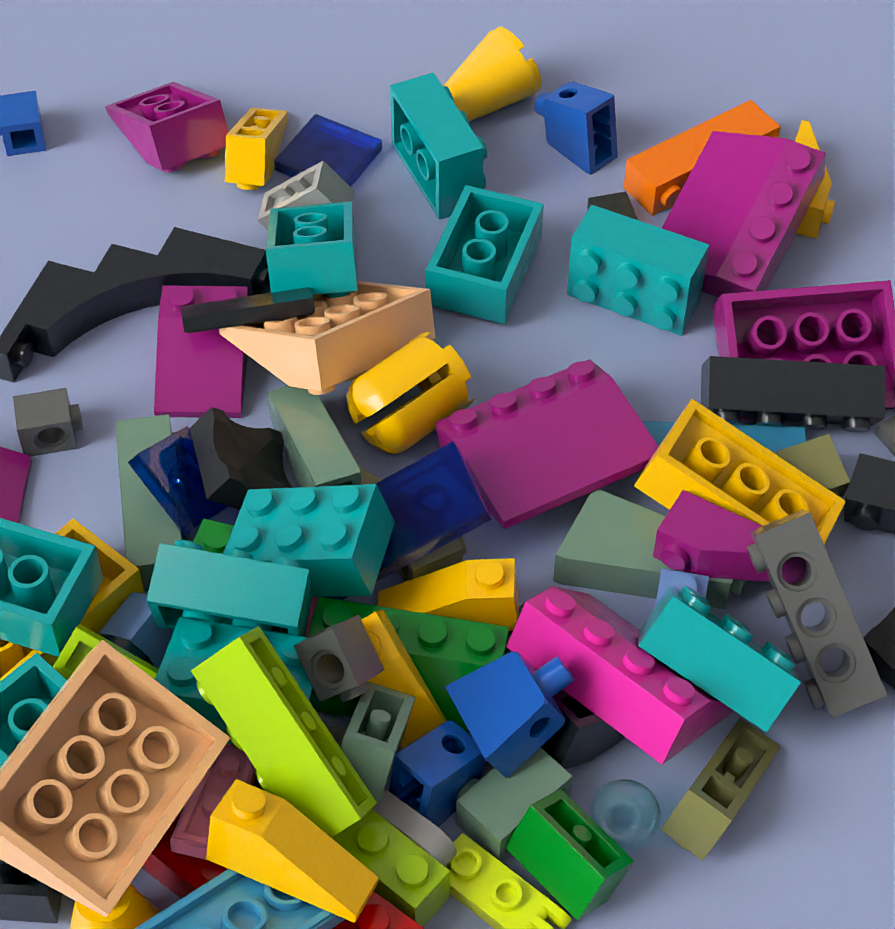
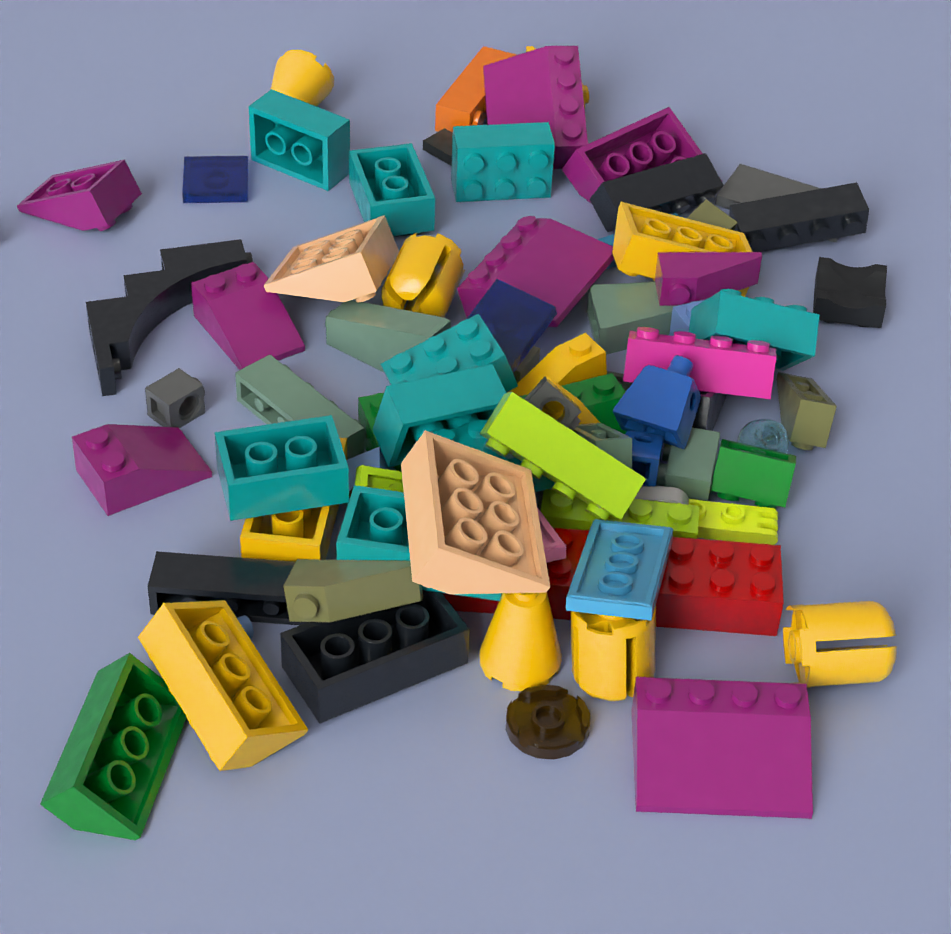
camera: 35 degrees left, 10 degrees down
(175, 480) = (322, 384): clear blue tile -> none
(236, 458) = (345, 361): black brick -> none
(247, 310) = (275, 268): black tile -> none
(253, 147) = (164, 190): yellow slope -> none
(286, 851) = (604, 516): yellow slope -> none
(311, 187) = (234, 204): light grey arch -> none
(313, 249) = (281, 223): teal brick -> none
(580, 124) = (381, 97): blue torso -> none
(857, 678) = (787, 267): dark grey brick -> none

